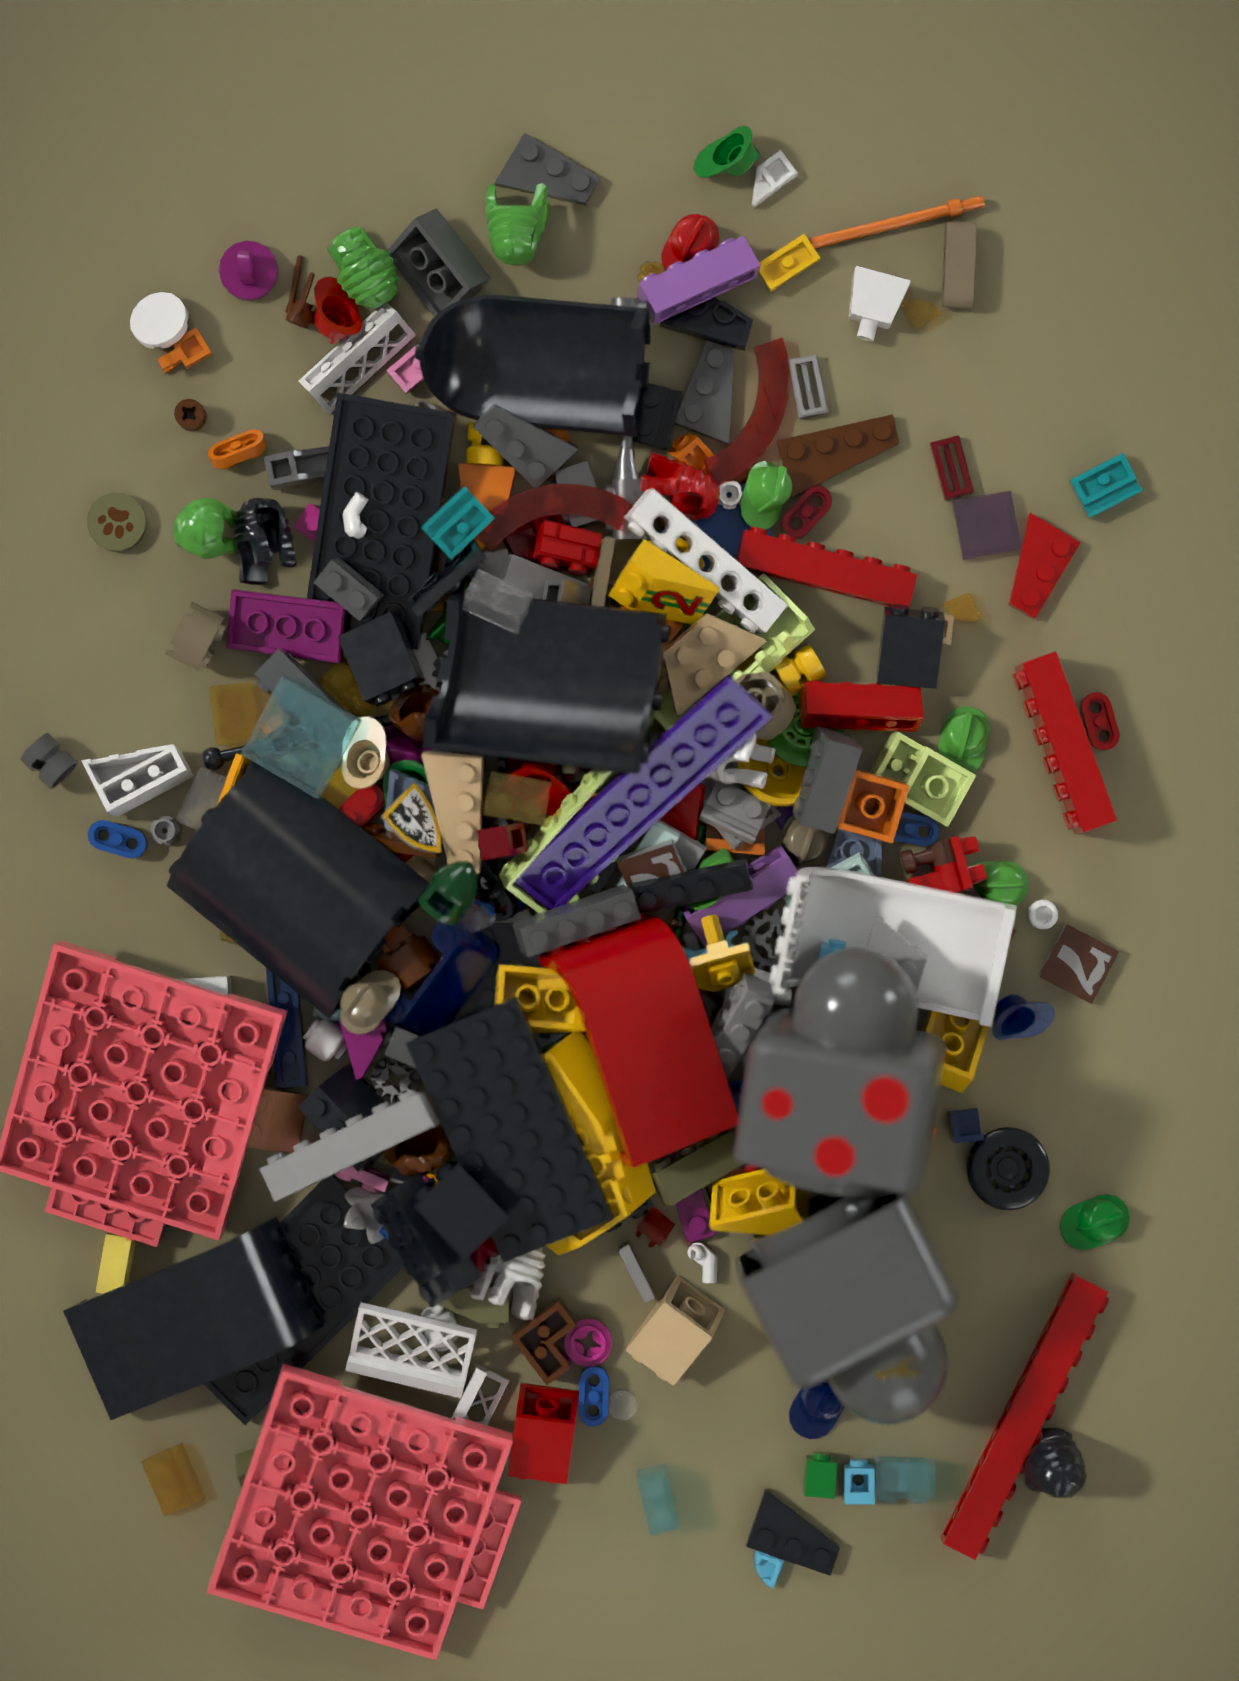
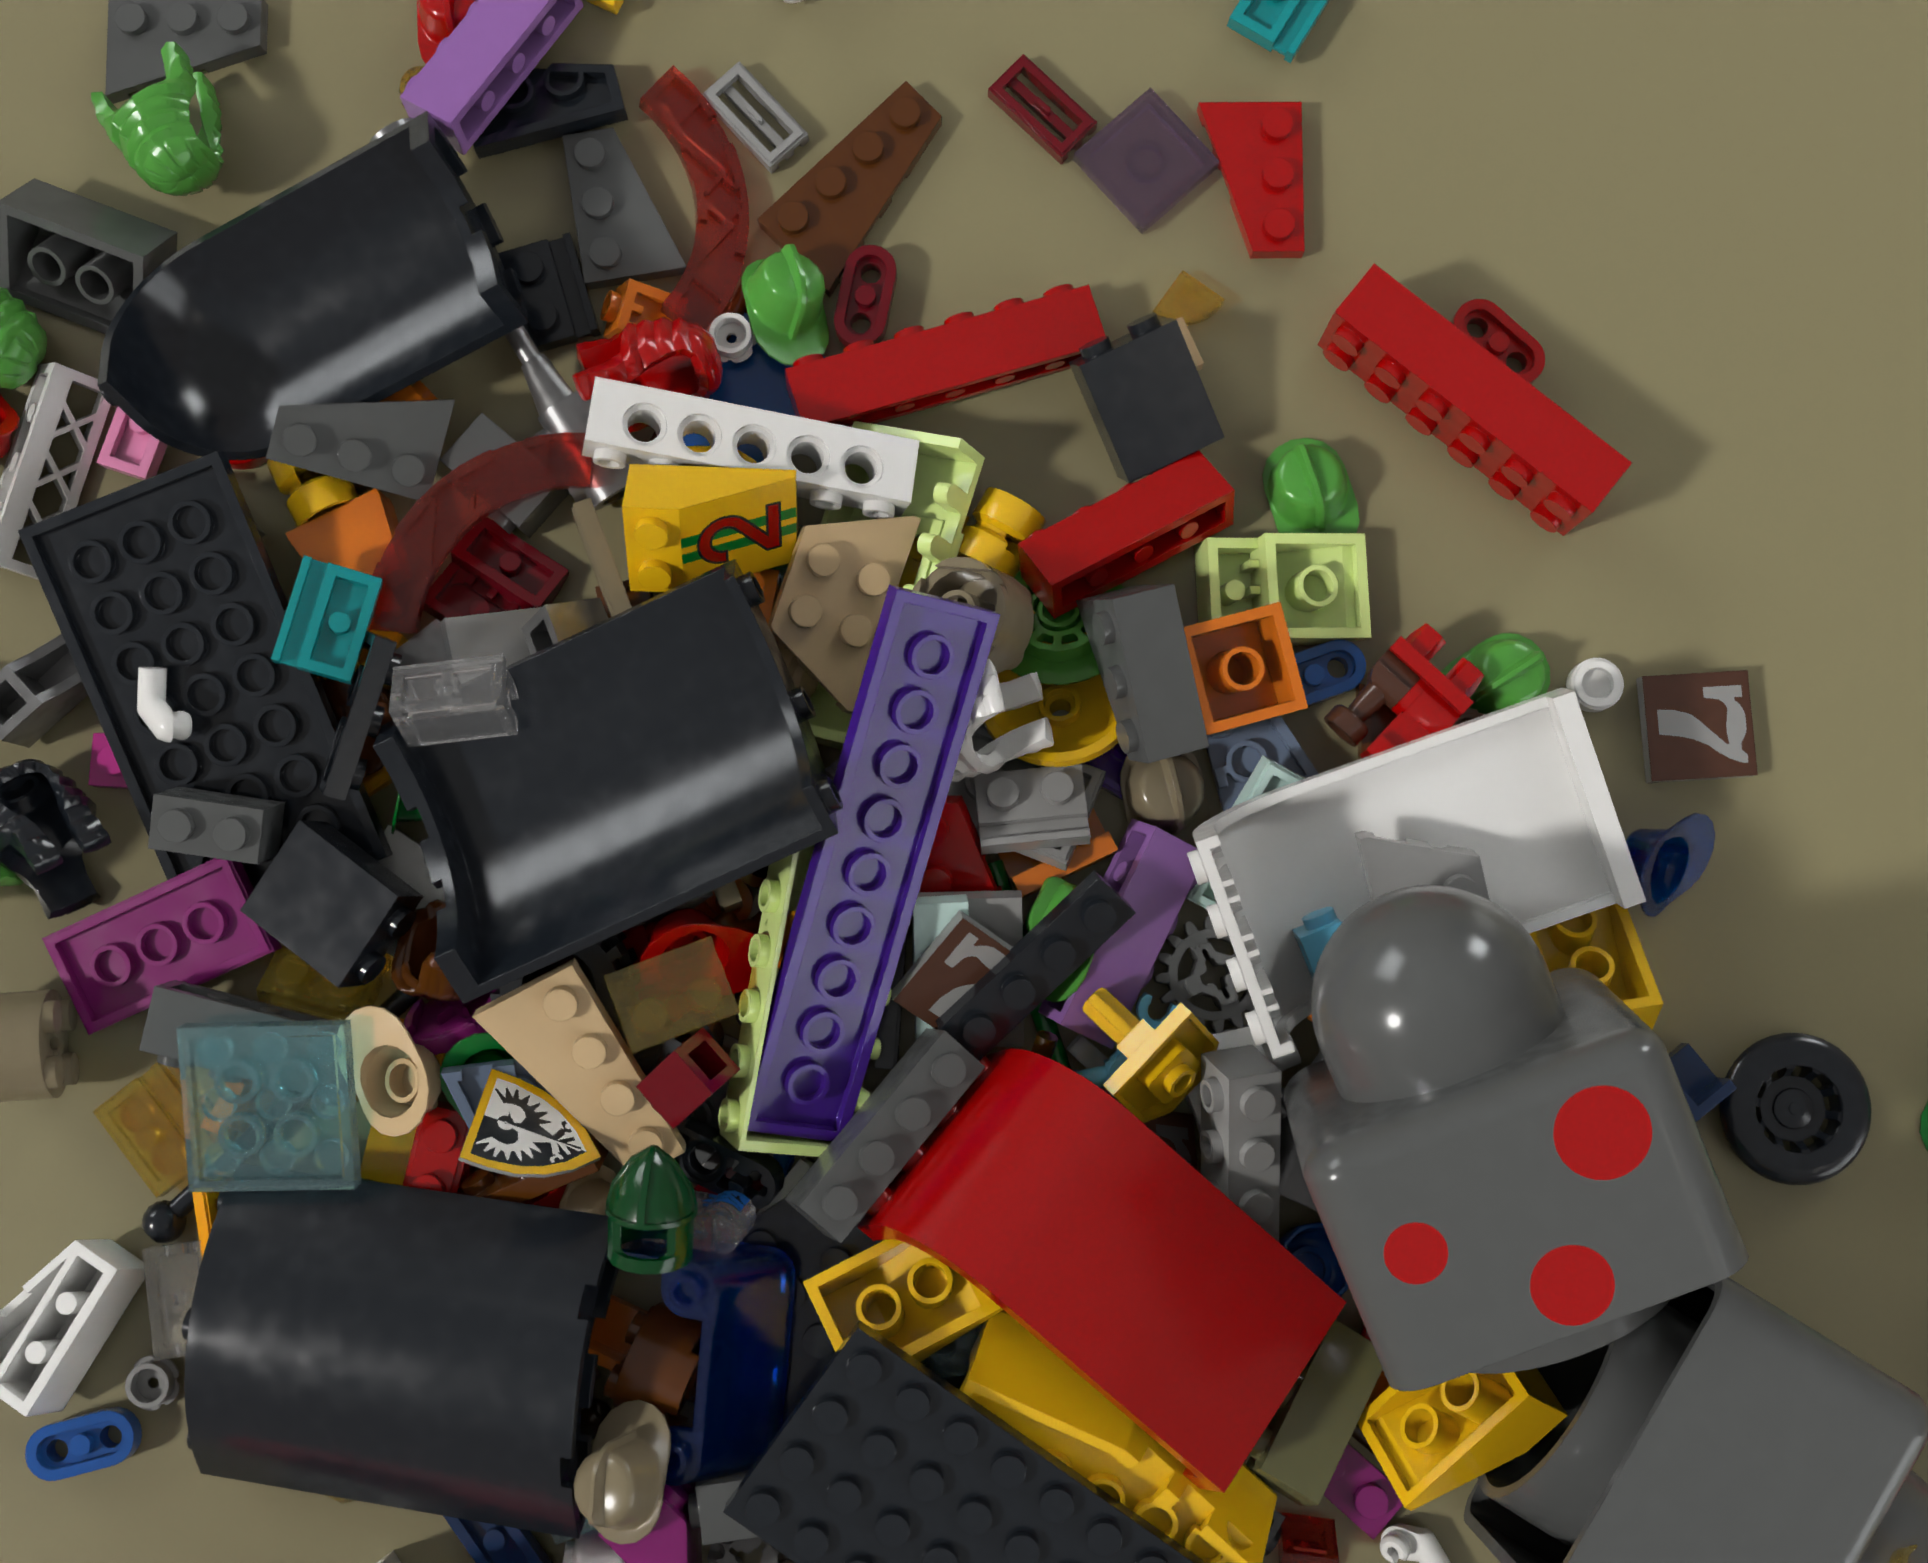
camera: 30 degrees left, 5 degrees down
(567, 547) = (528, 561): red brick -> none

